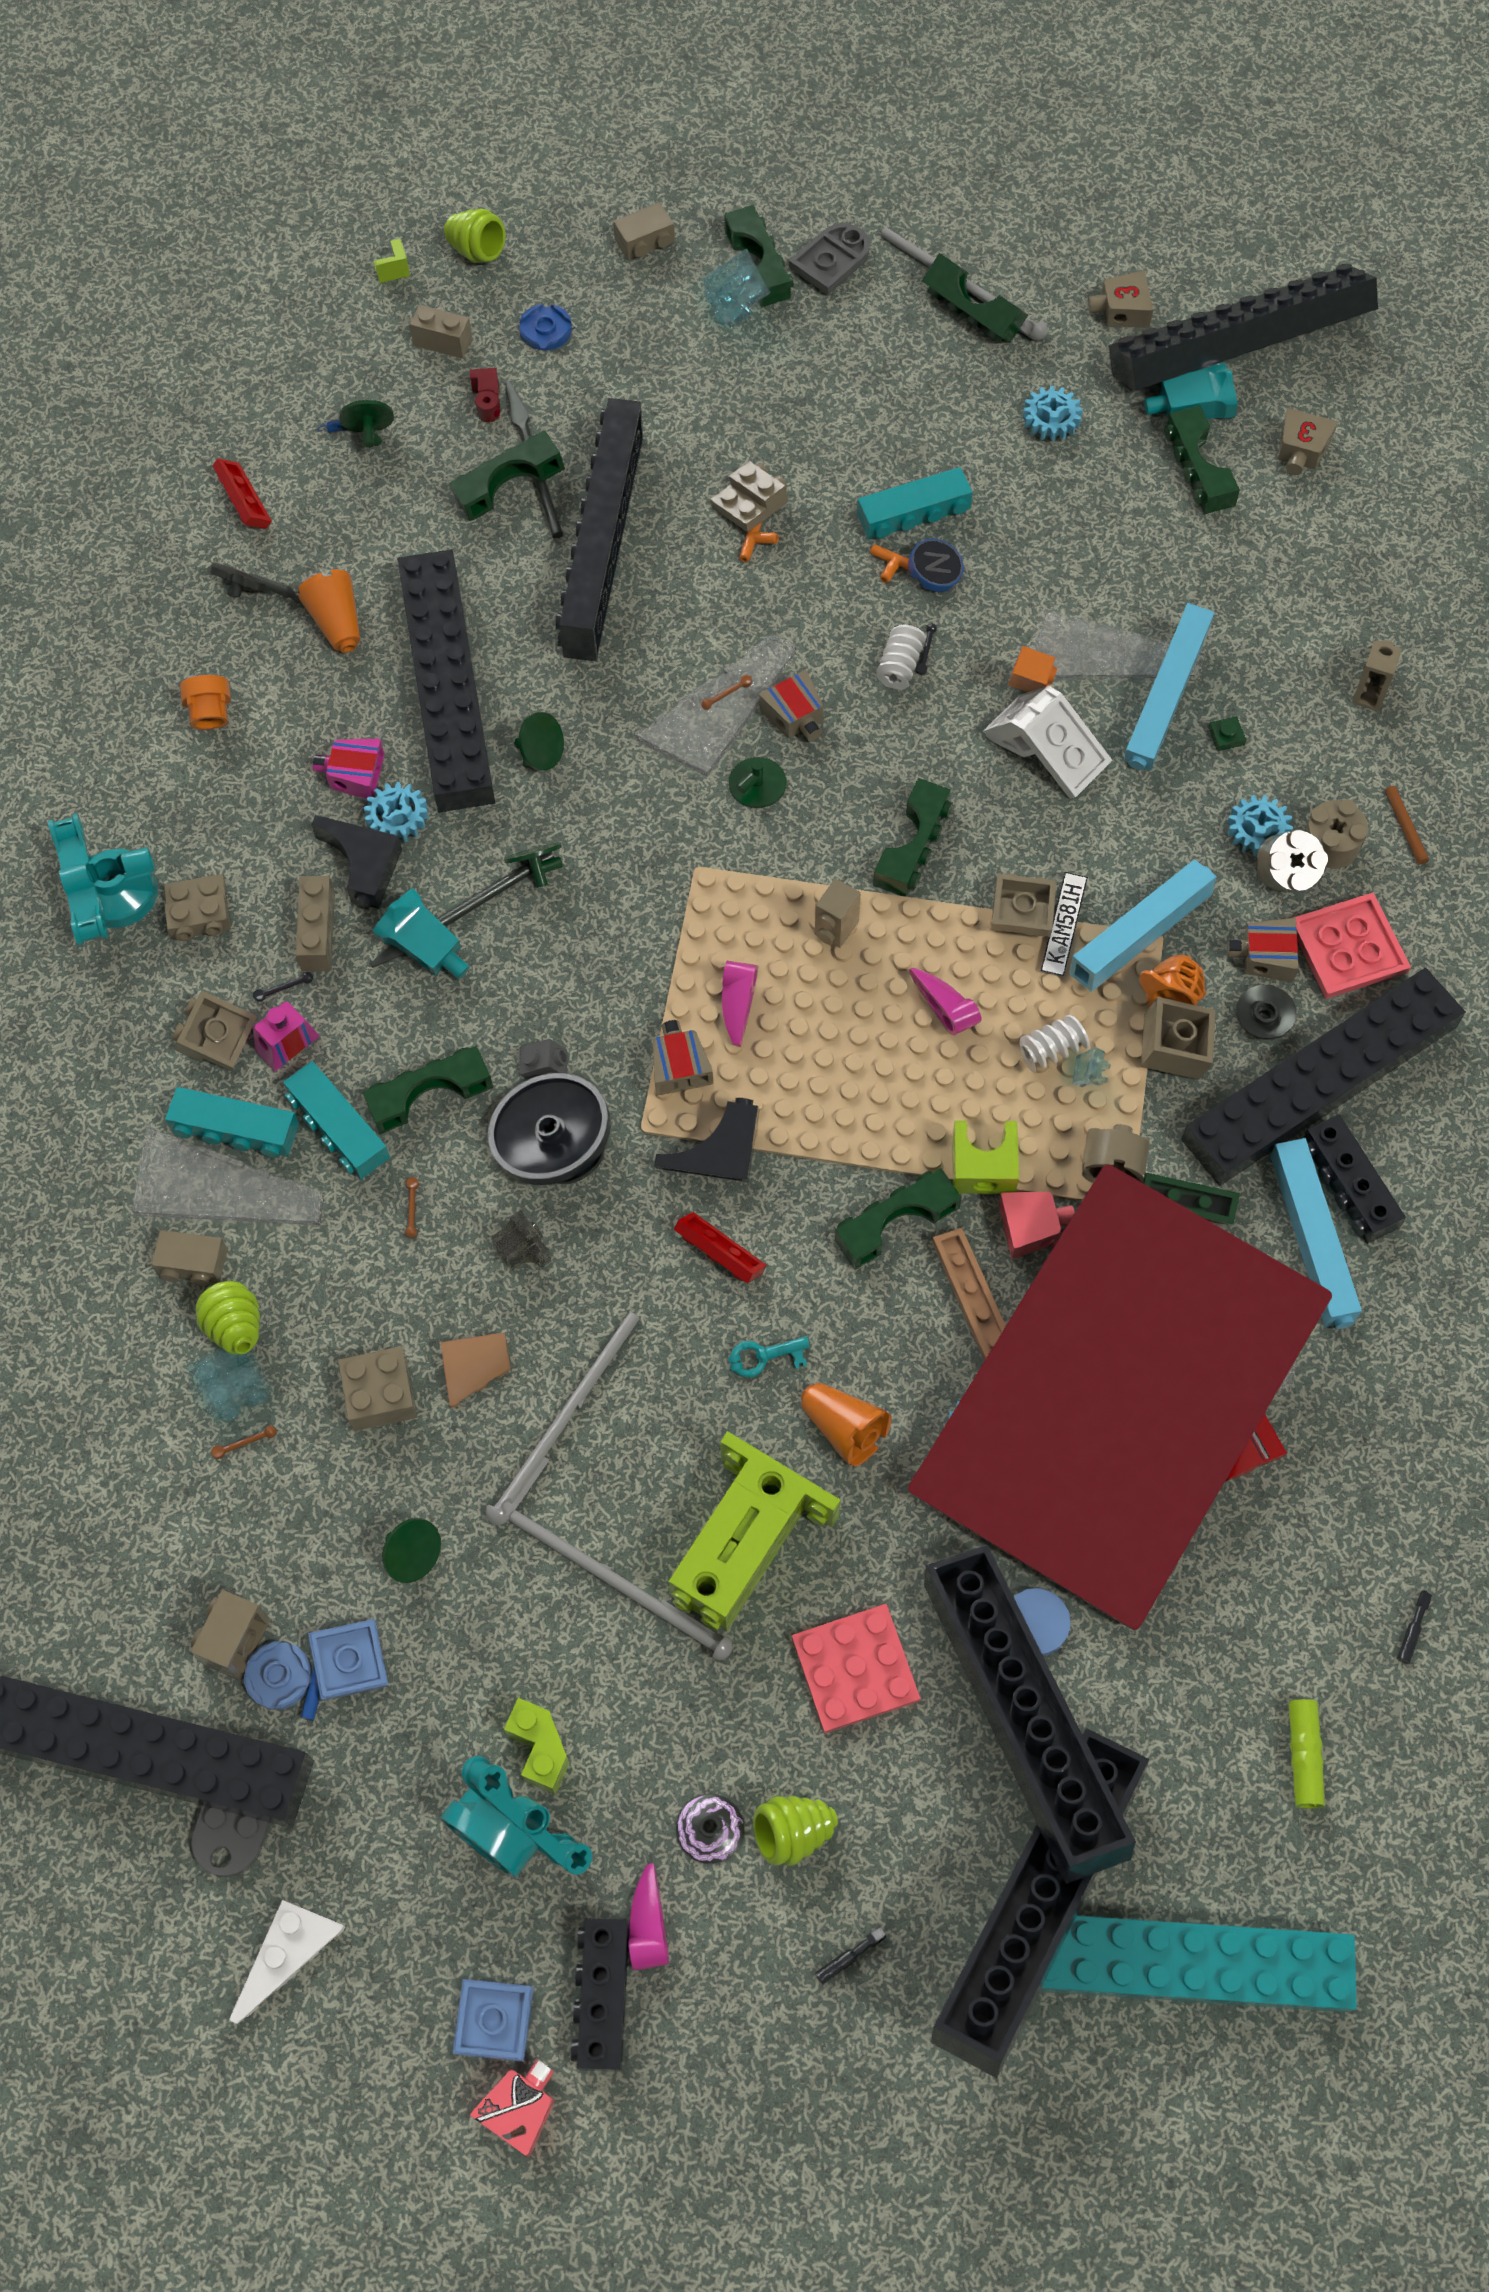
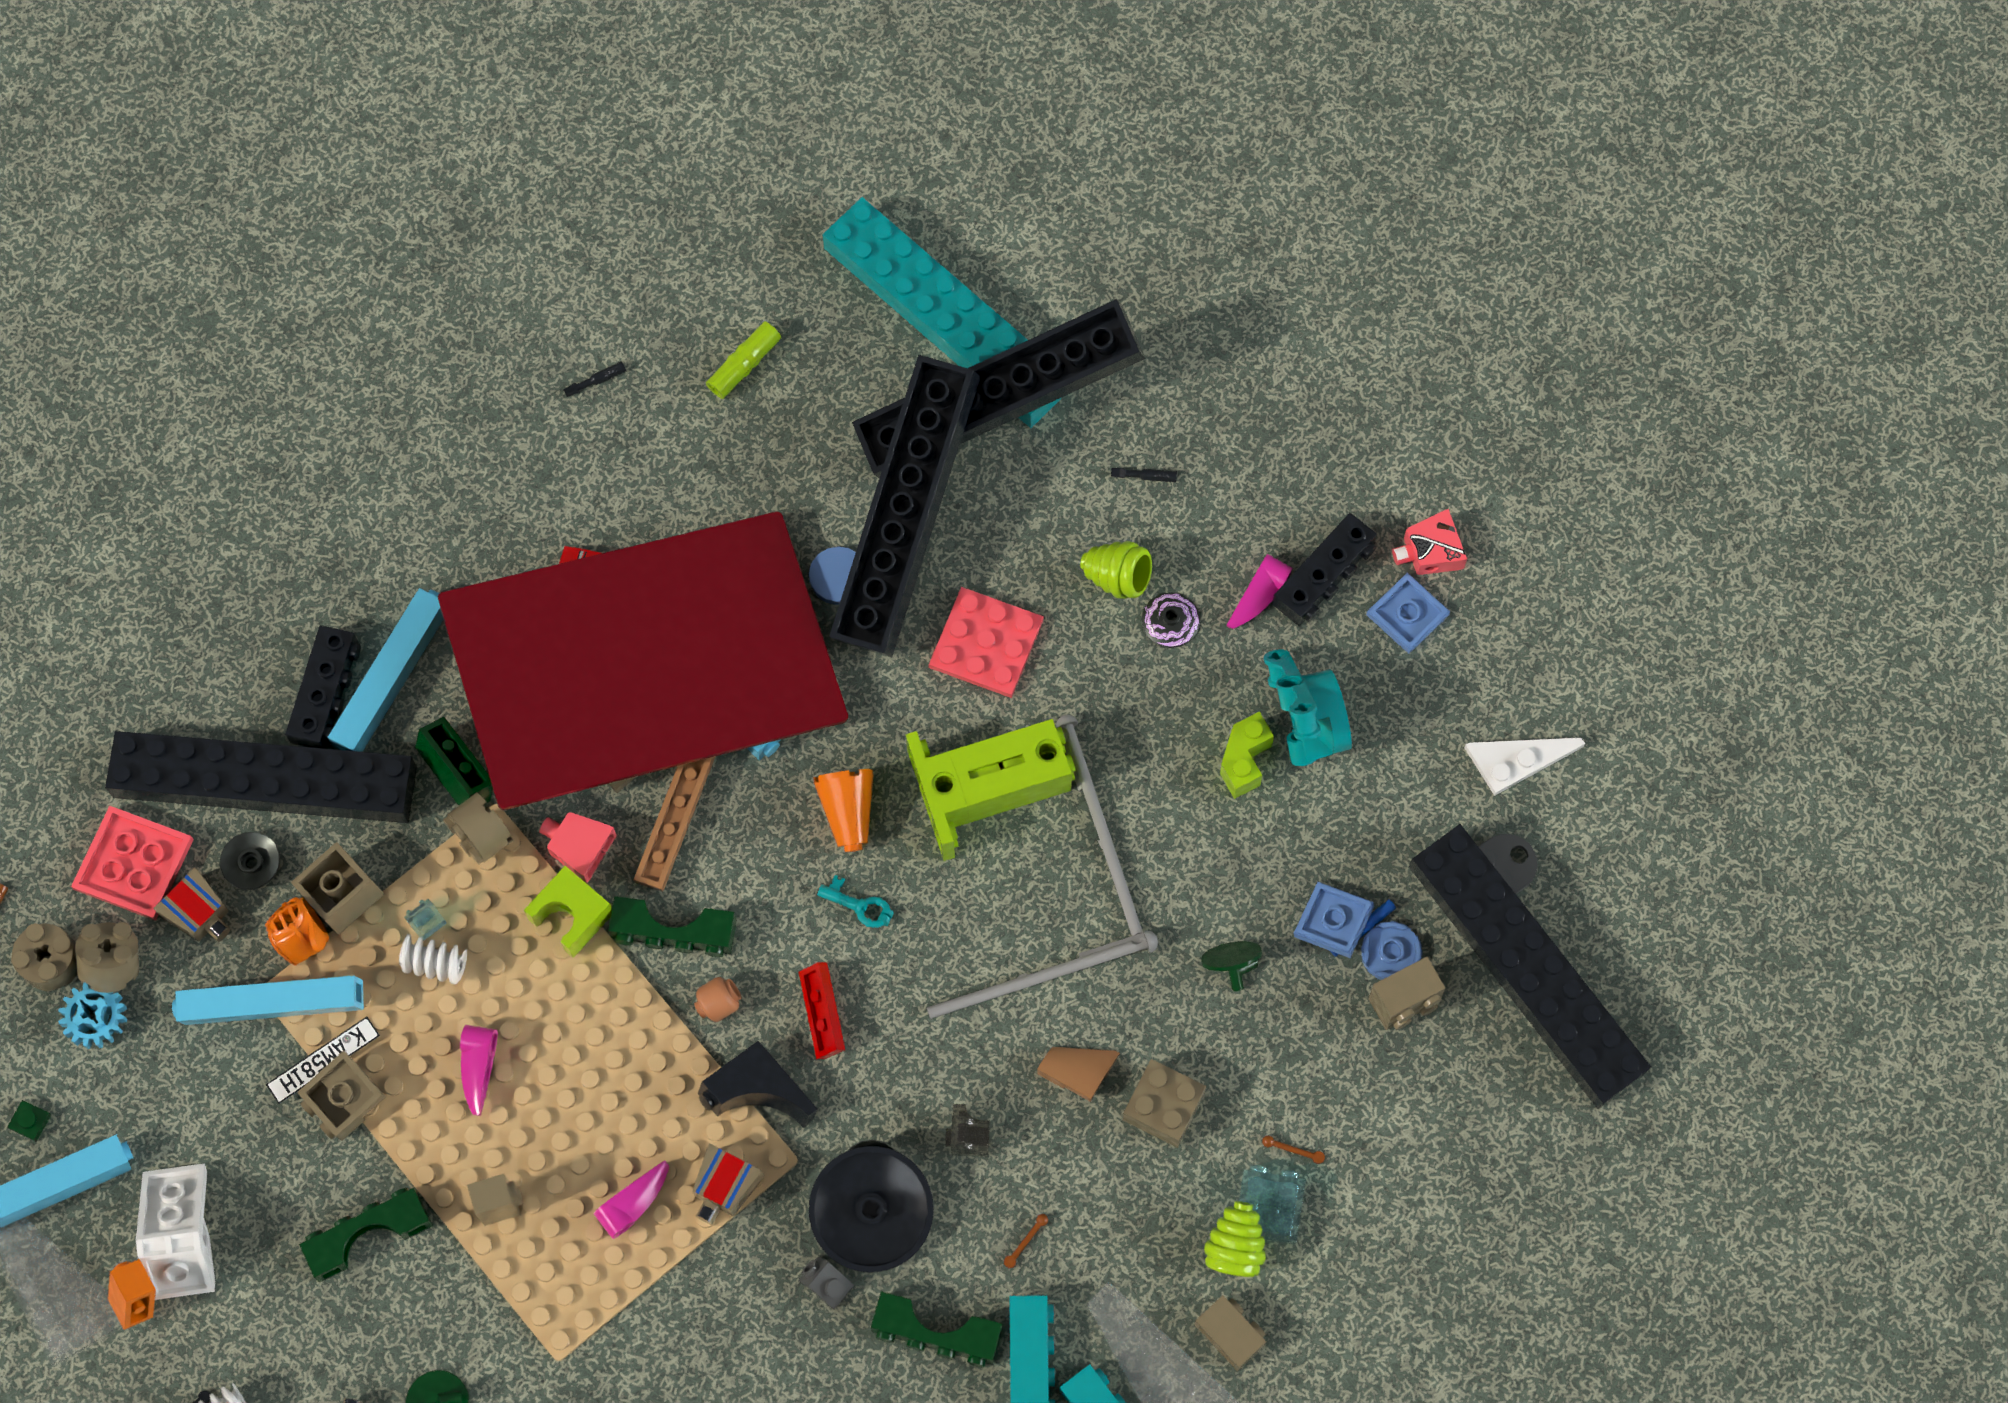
camera: 140 degrees left, 5 degrees up
(809, 1191) = (717, 999): none -> nougat head

